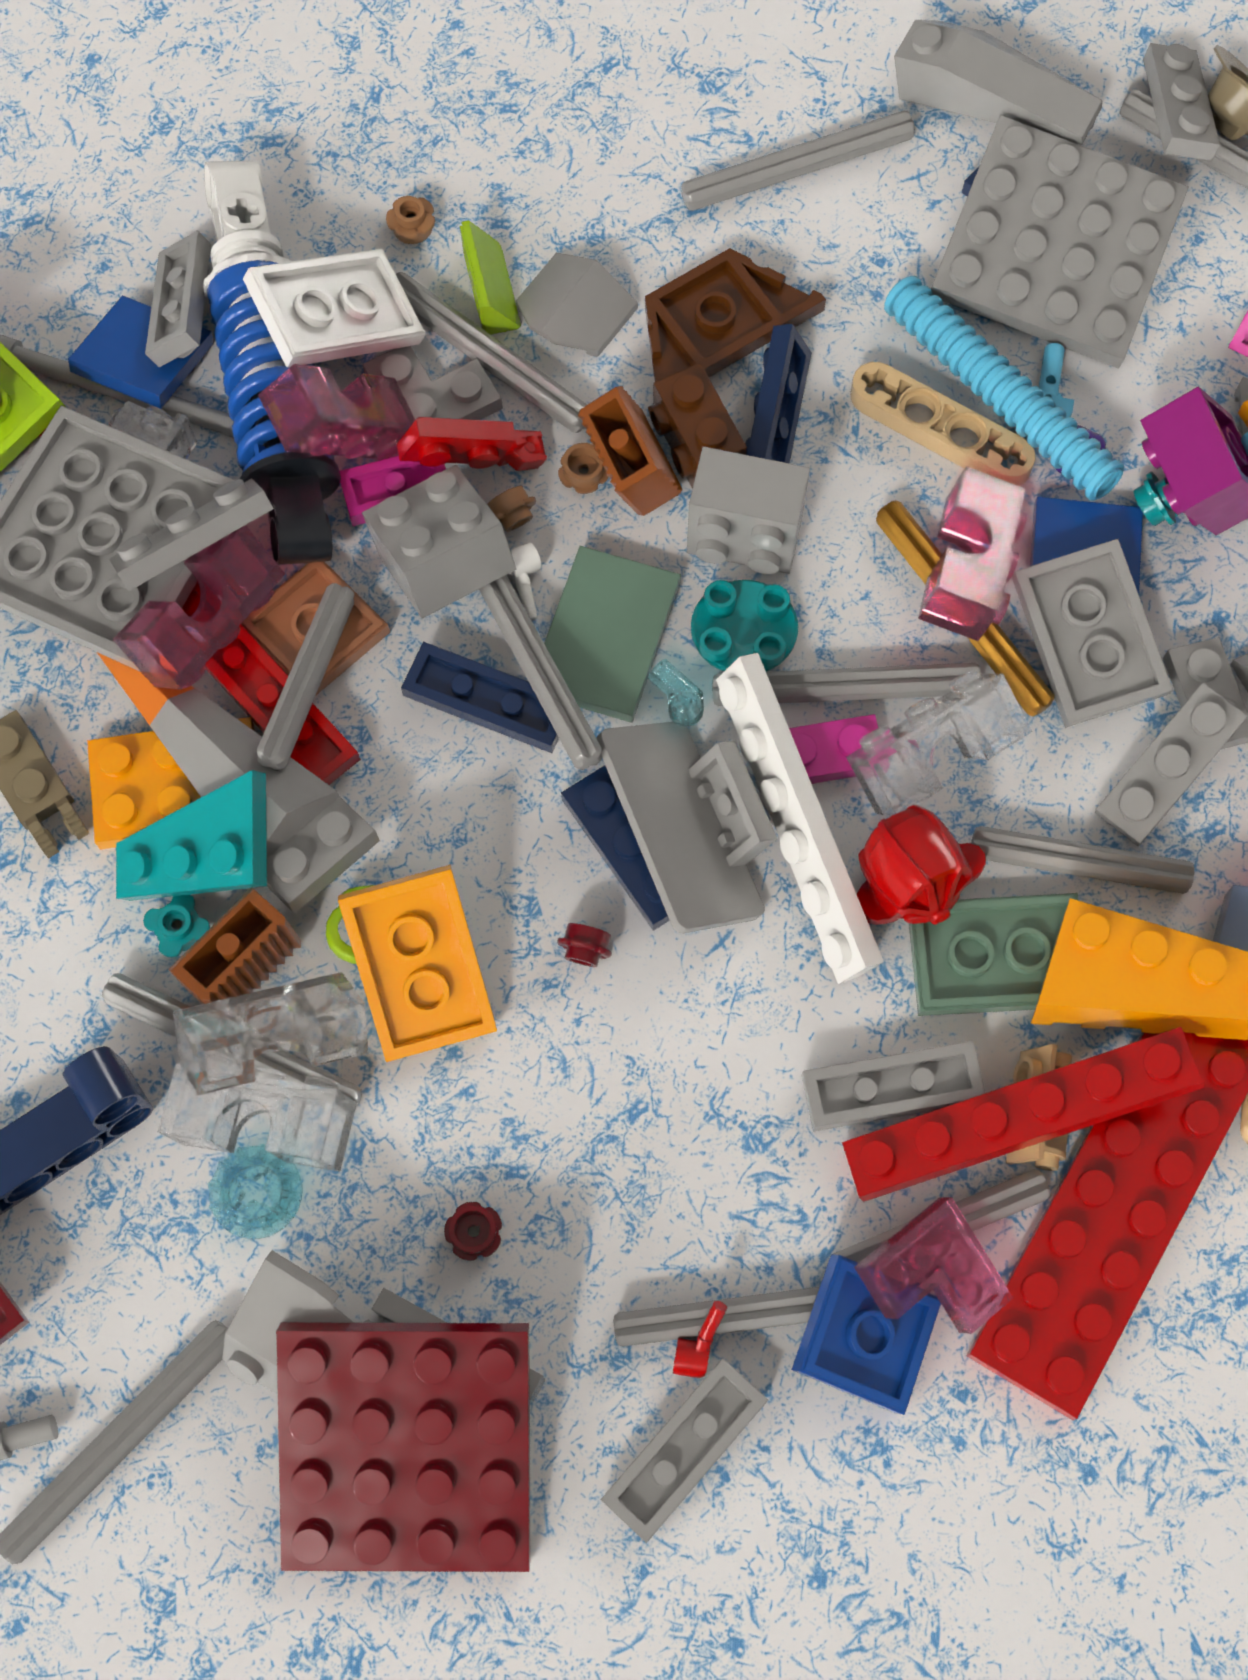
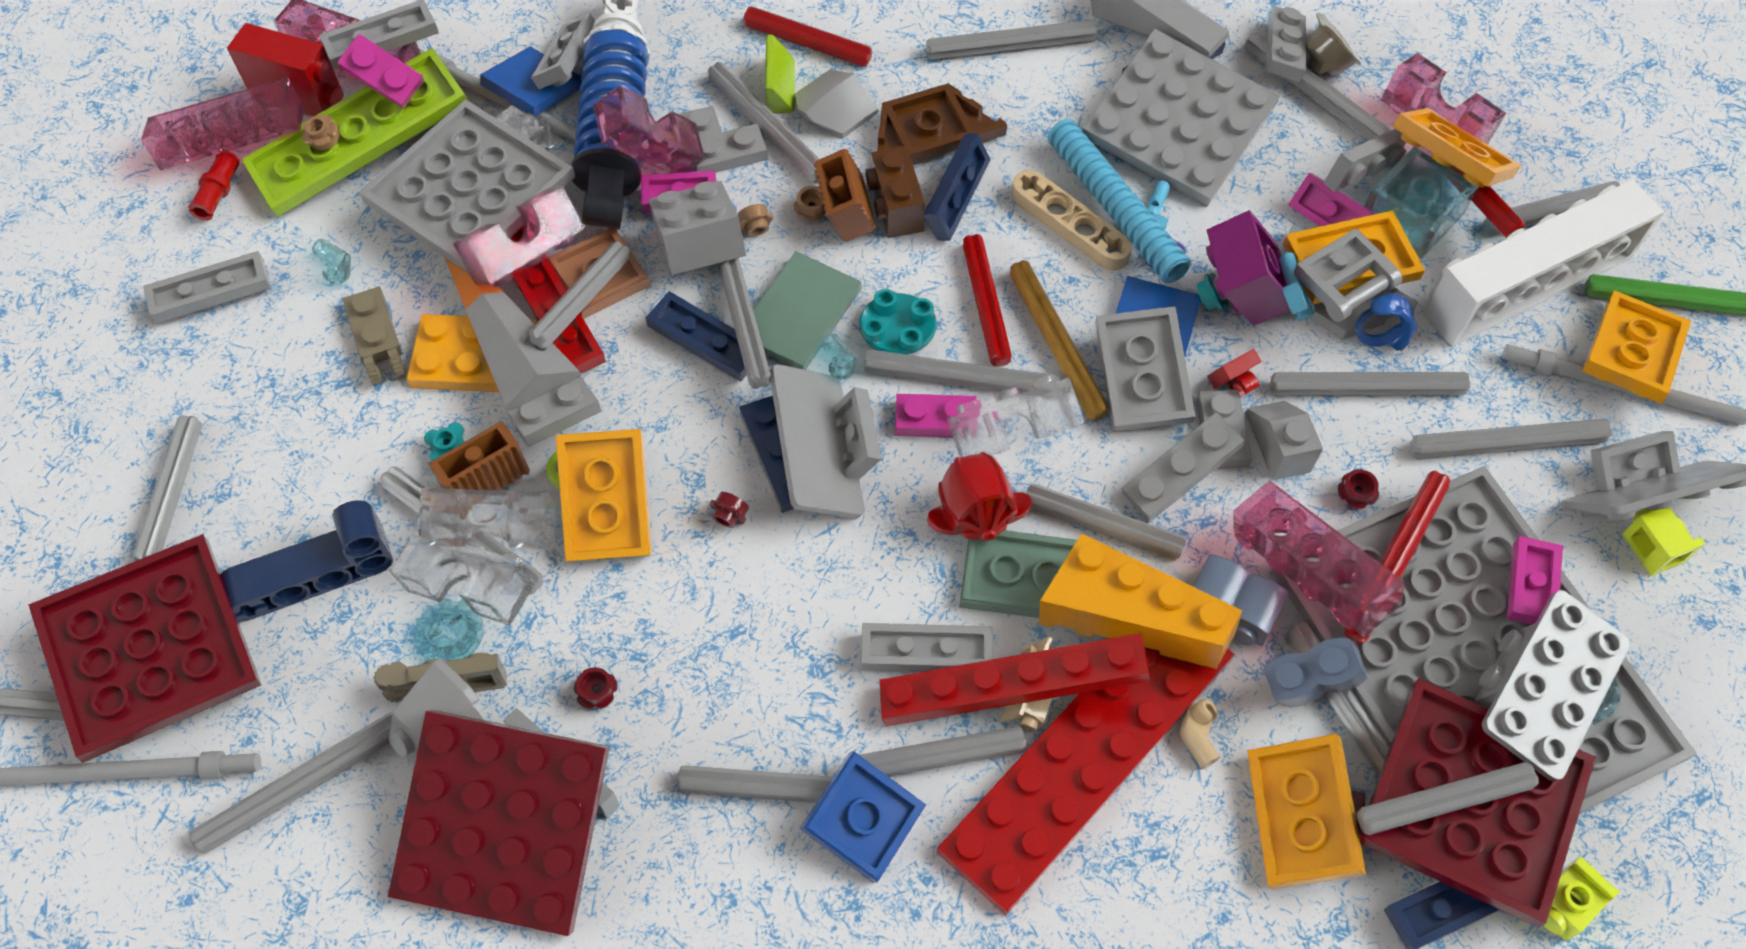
camera: 10 degrees right, 10 degrees down
(189, 532) = (524, 184): light grey plate -> none
(201, 847) = (475, 391): teal wing -> none
(310, 1244) = (478, 670): none -> dark tan hinge
(334, 307) = (666, 69): white tile -> none
(413, 229) = (737, 33): medium nougat plate -> none
(471, 443) = (736, 170): red hinge -> none
(513, 206) = (808, 36): none -> red axle
(526, 562) = (754, 256): white hand -> none
(684, 1450) = (706, 873): light grey plate -> none
(692, 1355) = (730, 807): red hand -> none
(746, 510) = (915, 244): light grey brick -> none
(798, 819) = (902, 455): white plate -> none
(856, 568) = (986, 300): none -> red axle
(938, 1255) = (931, 767): clear pink plate -> none
(969, 586) = (1070, 301): clear pink arch -> none
(1213, 613) = (1237, 373): none -> red tile

